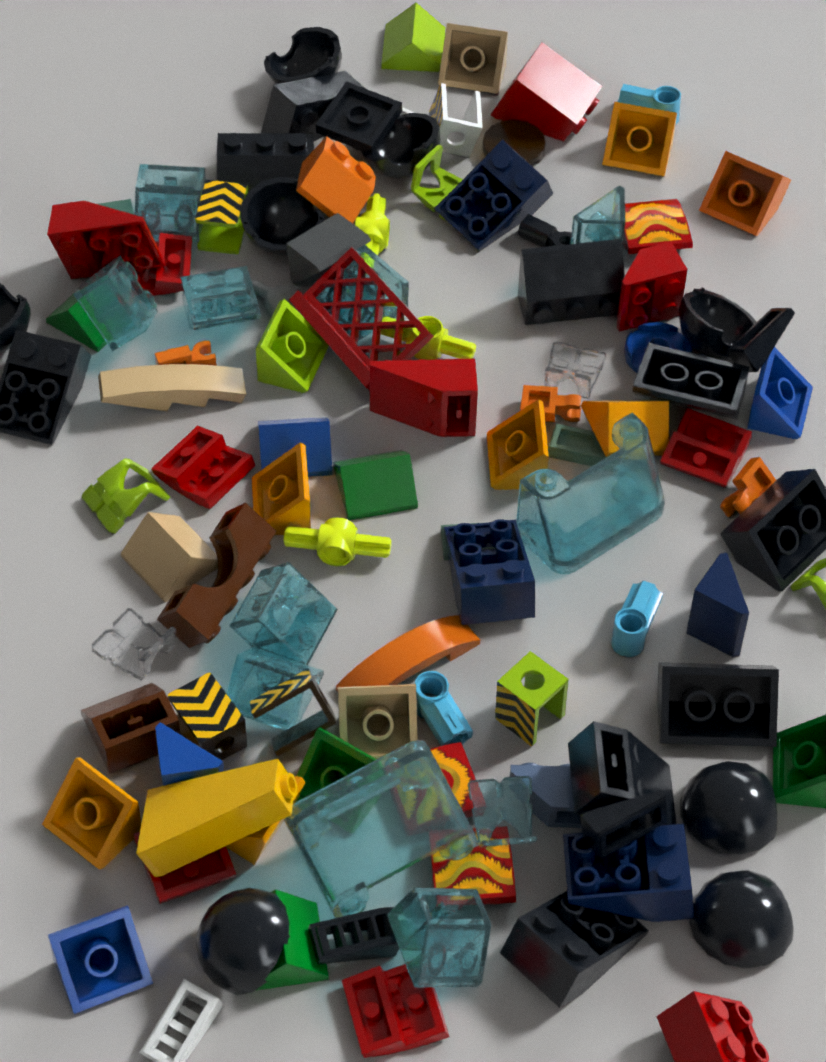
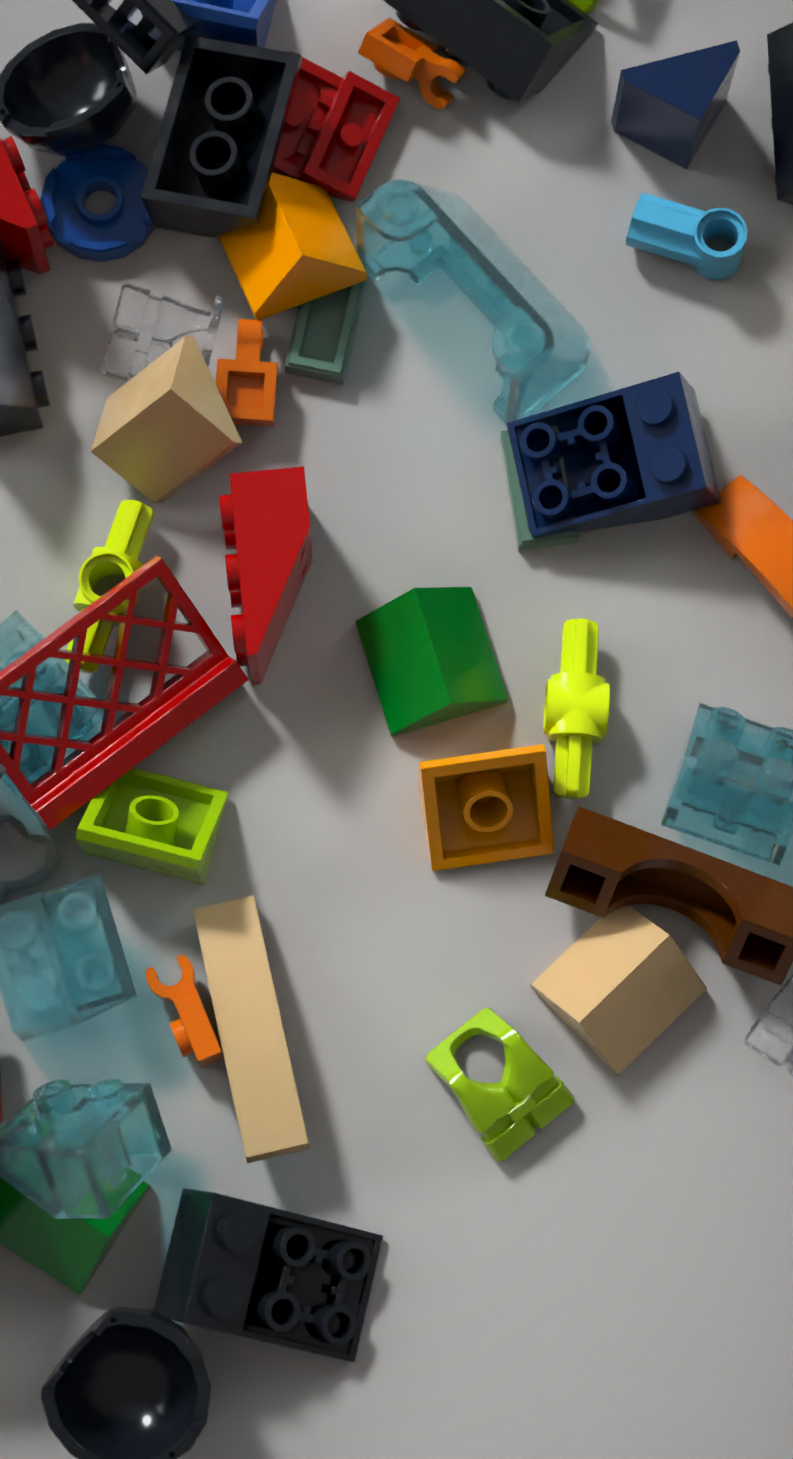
camera: 95 degrees left, 25 degrees up
(203, 467) = (420, 955): red slope -> none
(281, 435) = (358, 800): blue slope -> none
(516, 354) = (166, 424): none -> tan slope
(517, 447) = (358, 419): light orange slope -> none

